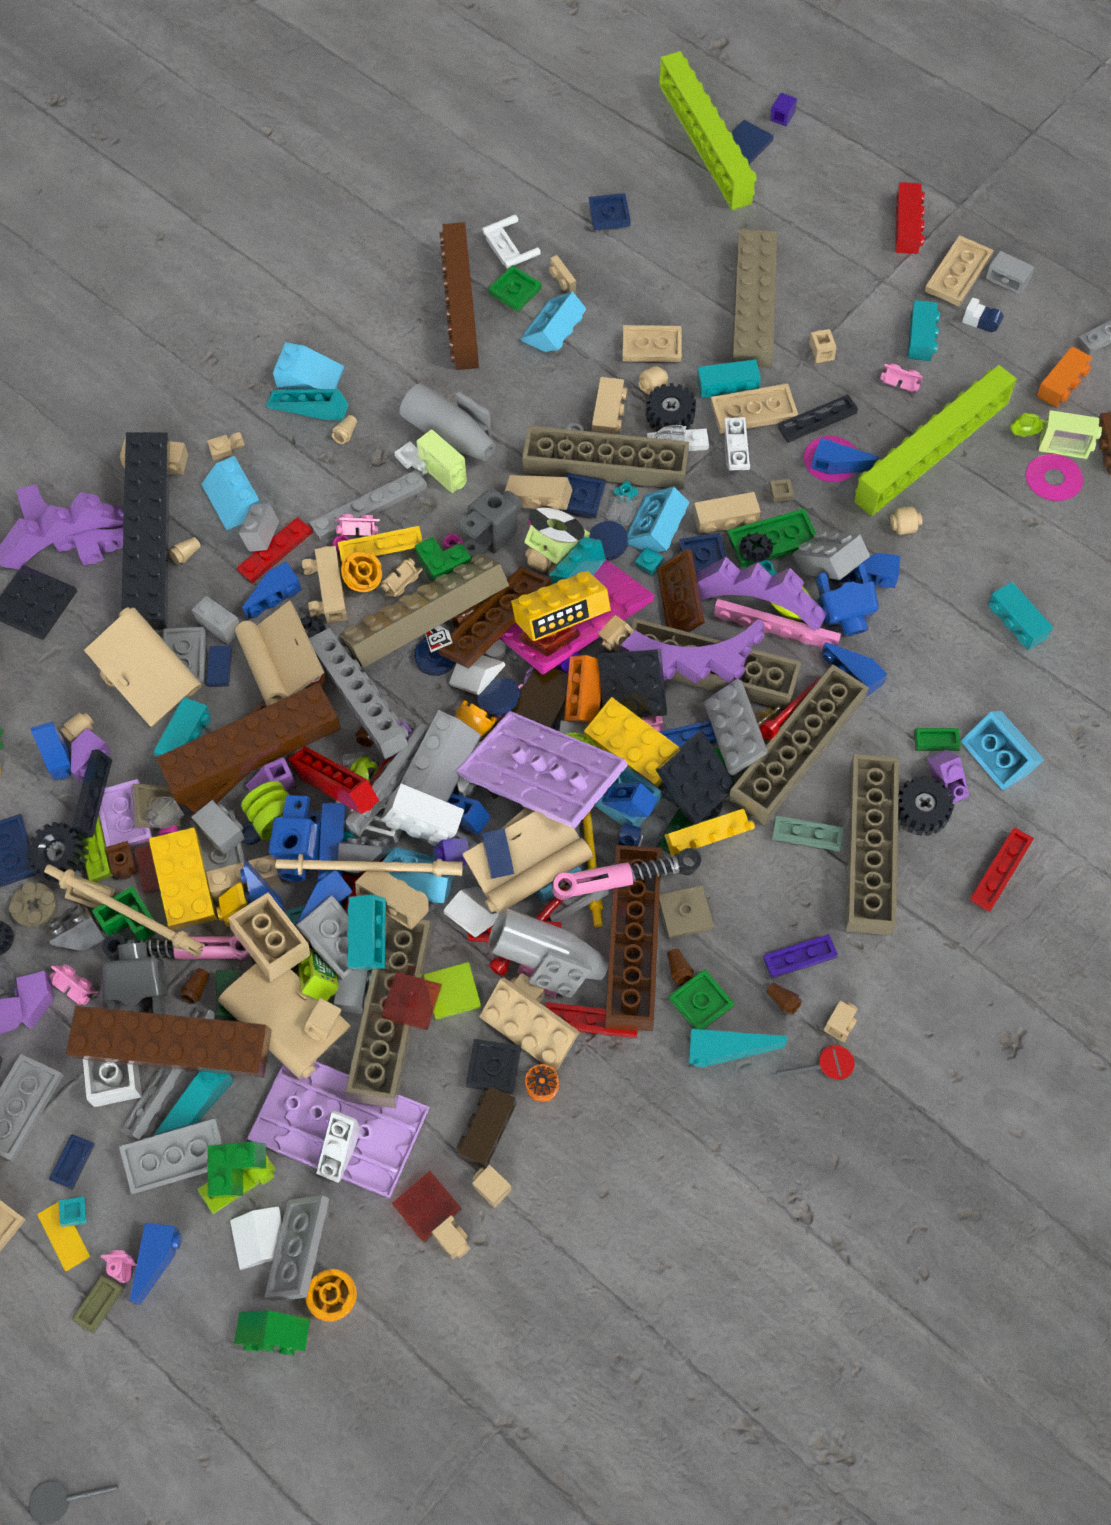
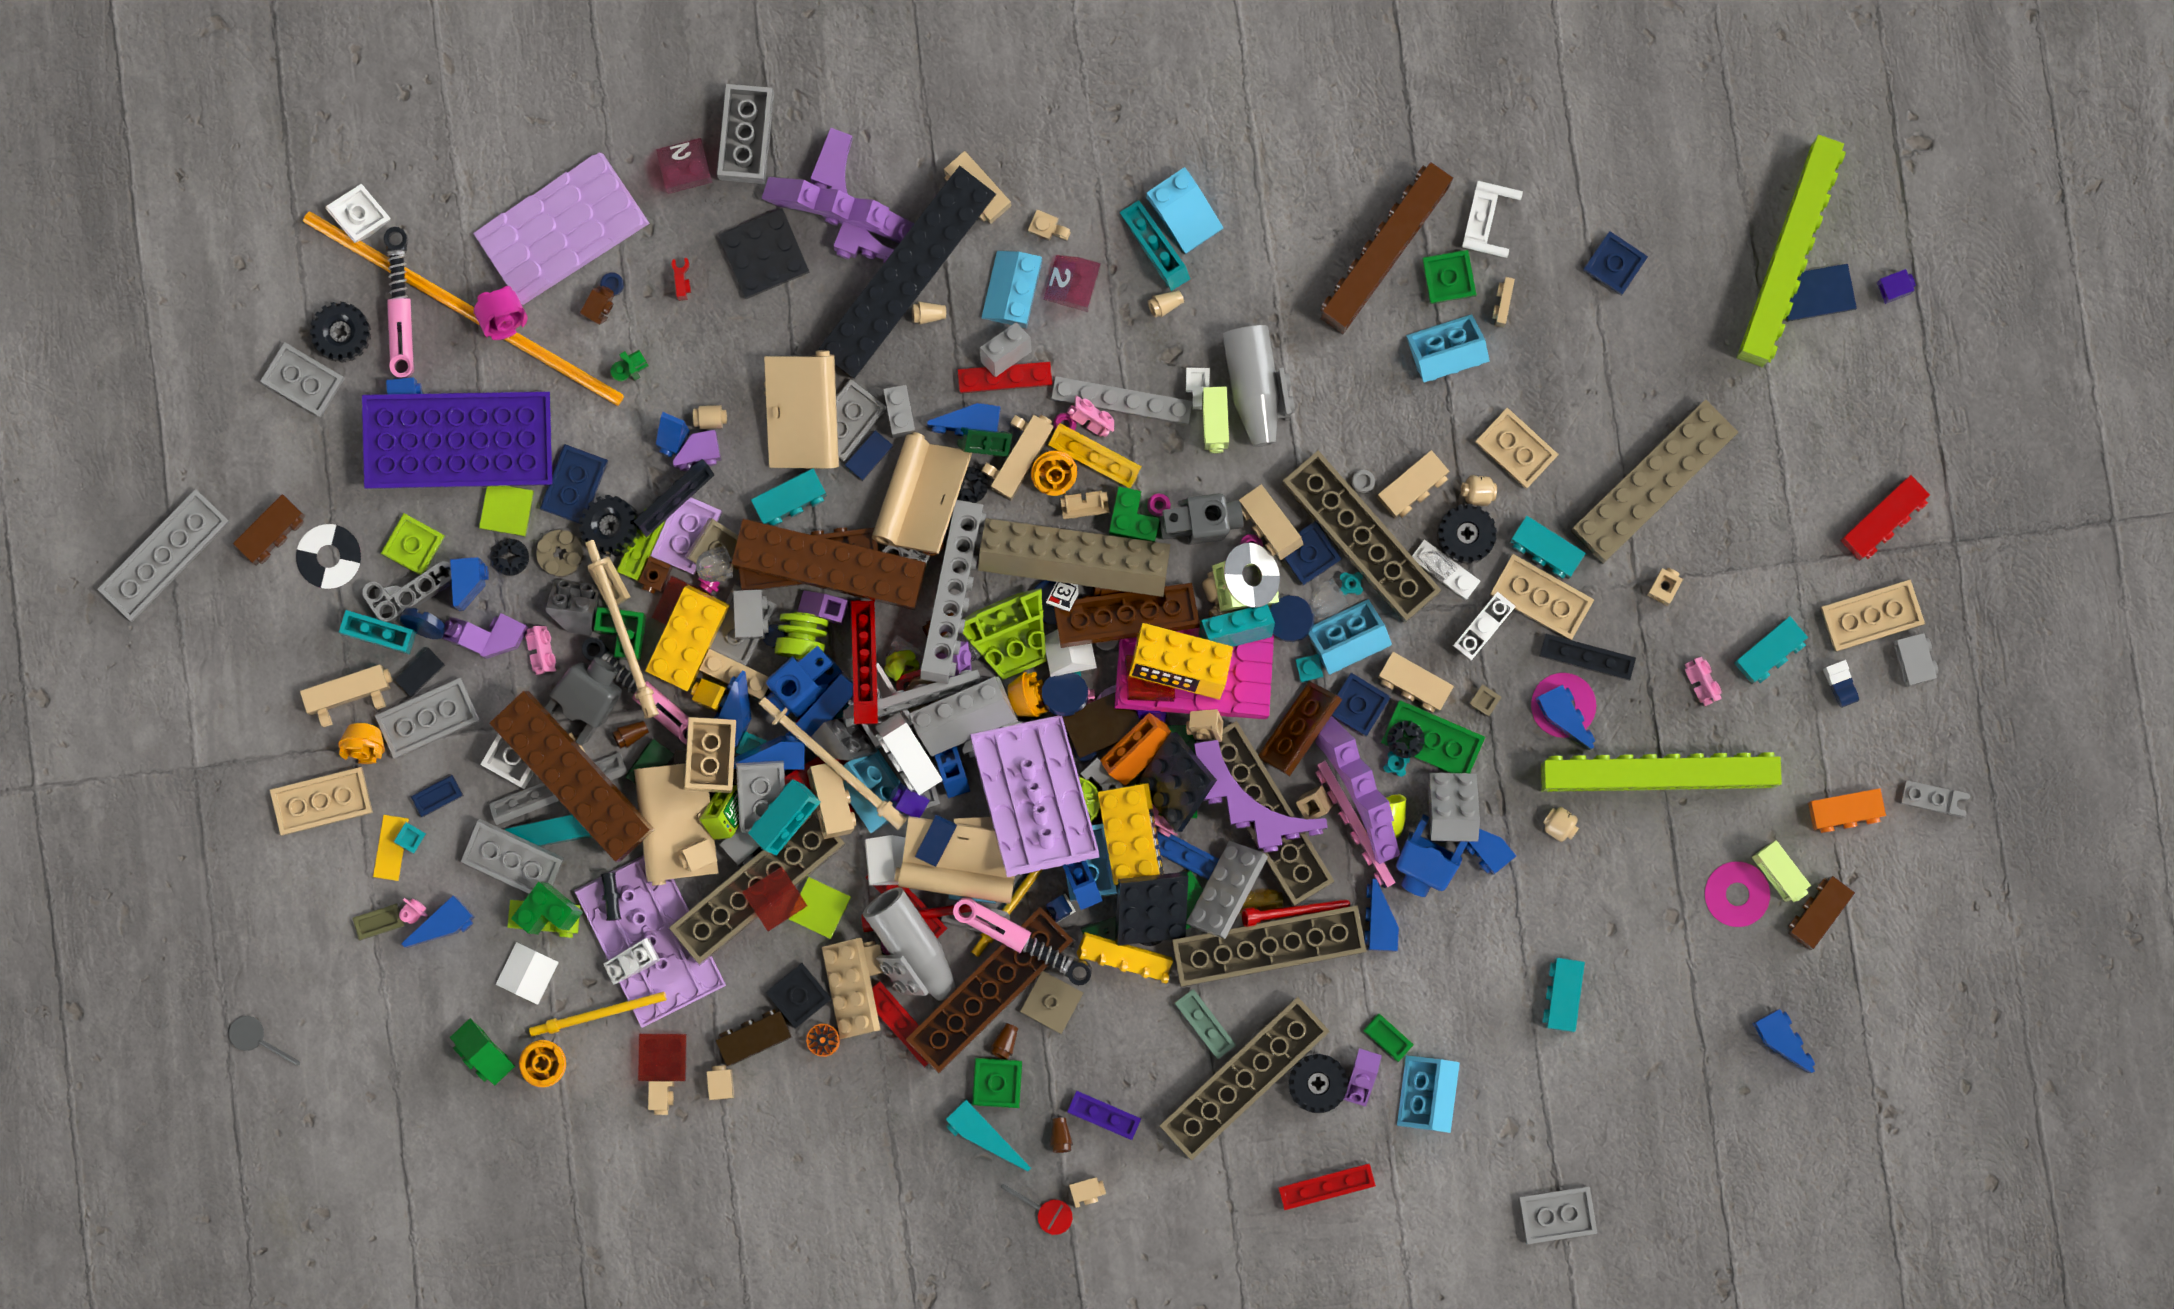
camera: 40 degrees right, 20 degrees up
(270, 461) = (1072, 282): none -> clear pink slope
(279, 1115) = (611, 896): none -> black pin
(294, 587) = (985, 442): none -> dark green hinge
(297, 1248) = (545, 1009): light grey plate -> none
(350, 1209) = (554, 1025): none -> yellow bar
(424, 691) = (1009, 633): none -> lime wedge
(735, 627) = (1314, 803): none -> tan brick
(1027, 425) = (1762, 825): lime piece -> none

